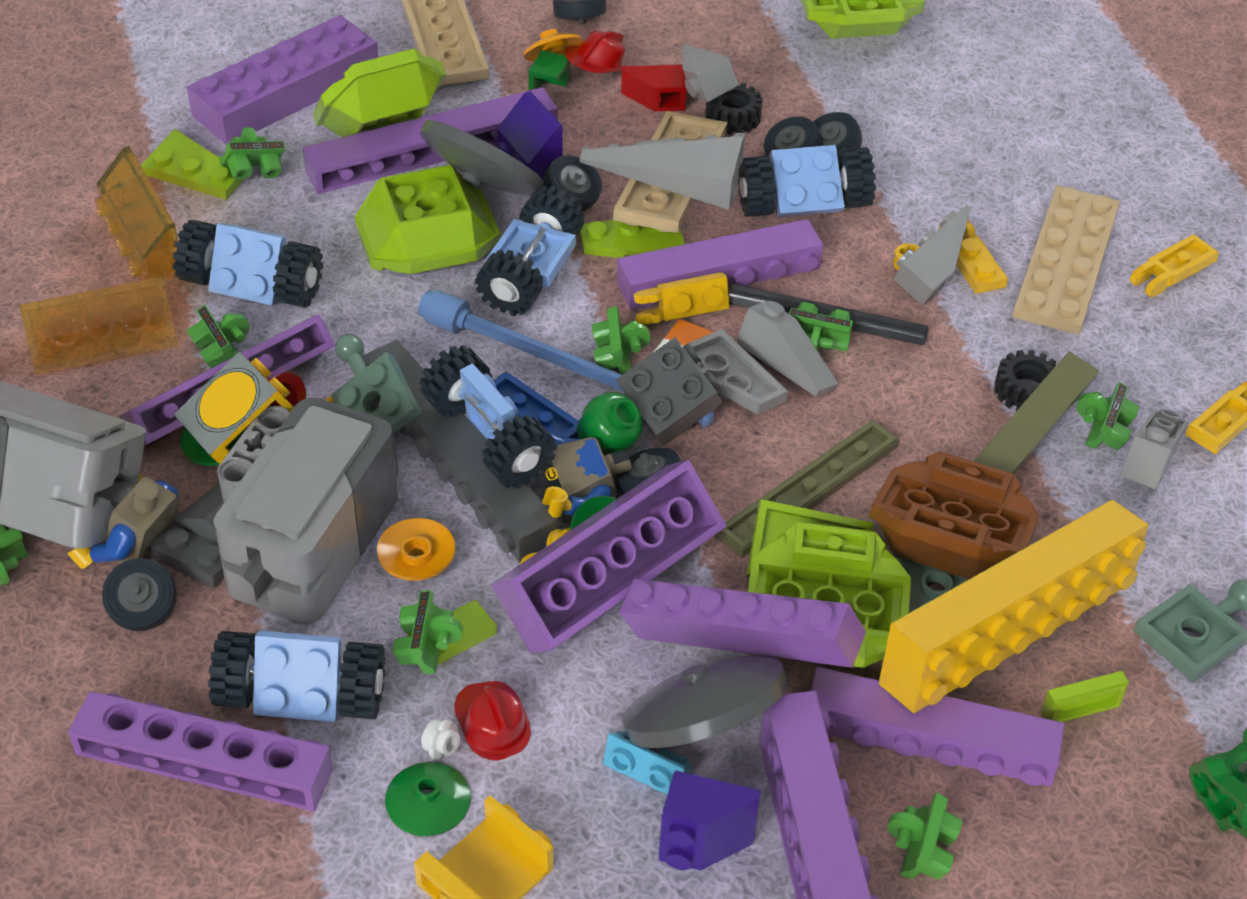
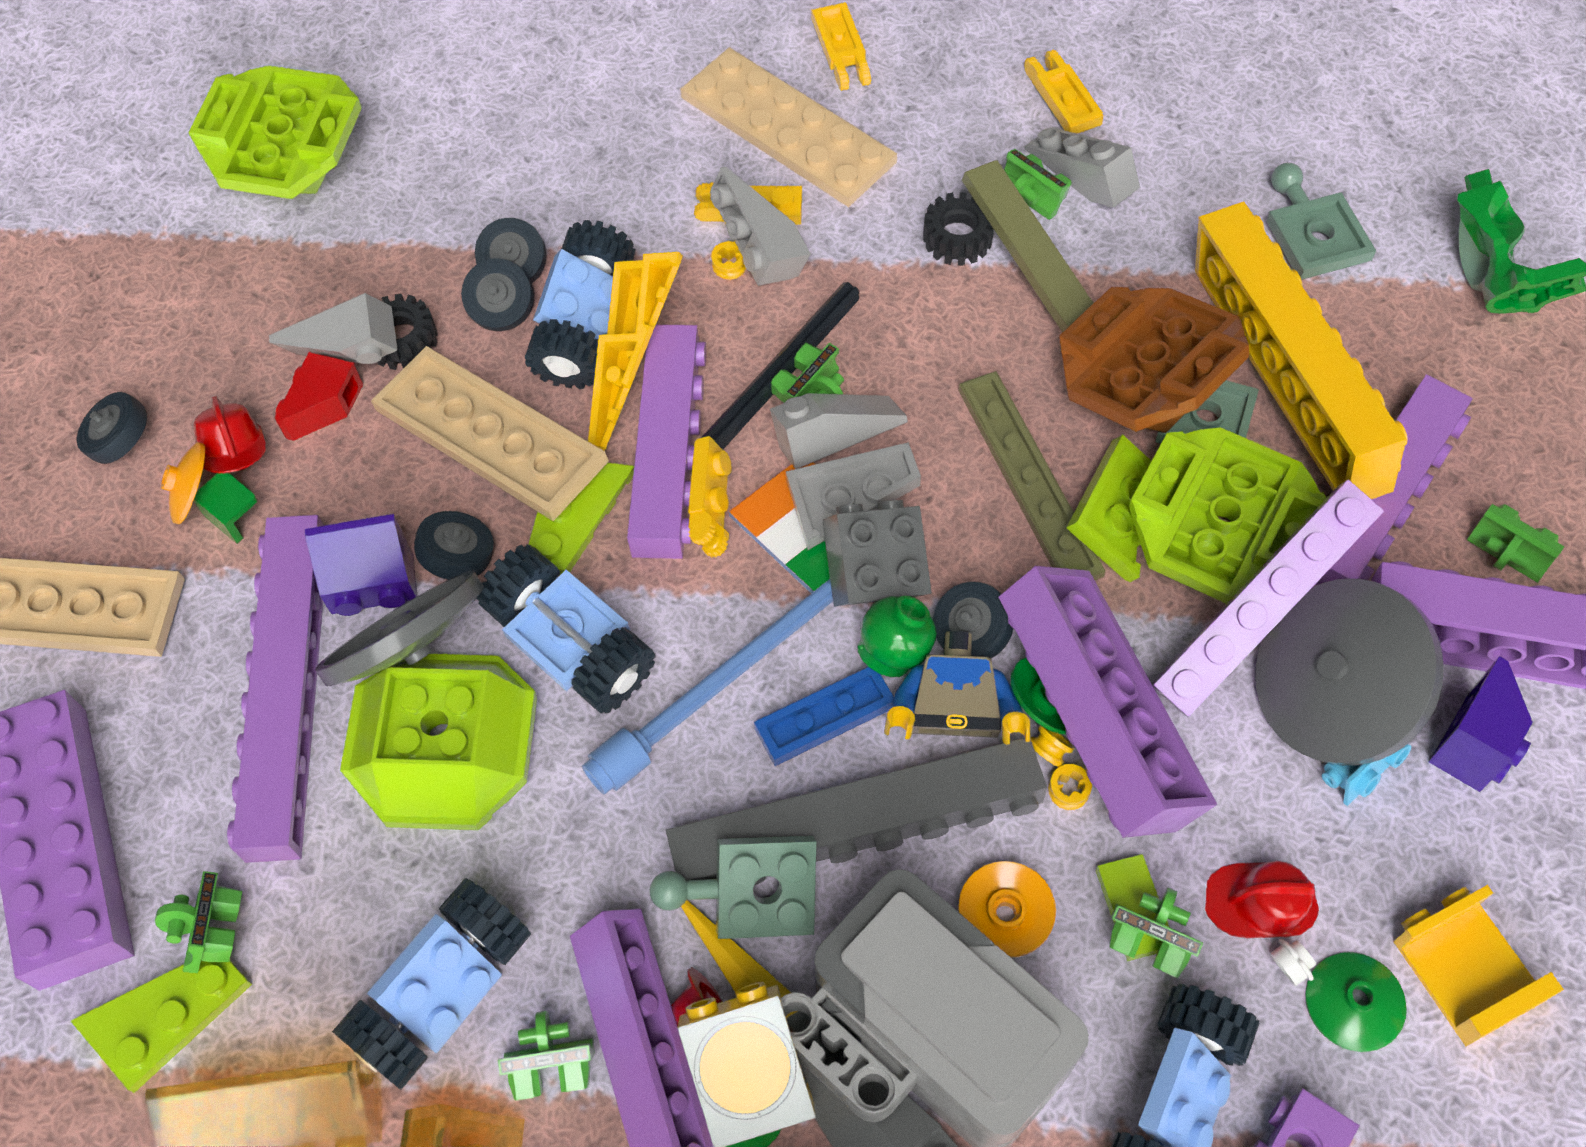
camera: 65 degrees left, 15 degrees up
(380, 93) = (195, 720): lime piece -> none
(515, 445) = (941, 734): black plate -> none
(620, 339) = (767, 593): bright green hips -> none
(694, 168) = (543, 397): light grey wedge -> none
(825, 201) = (635, 306): none -> yellow wedge
(1085, 697) = (1382, 348): lime tile -> none

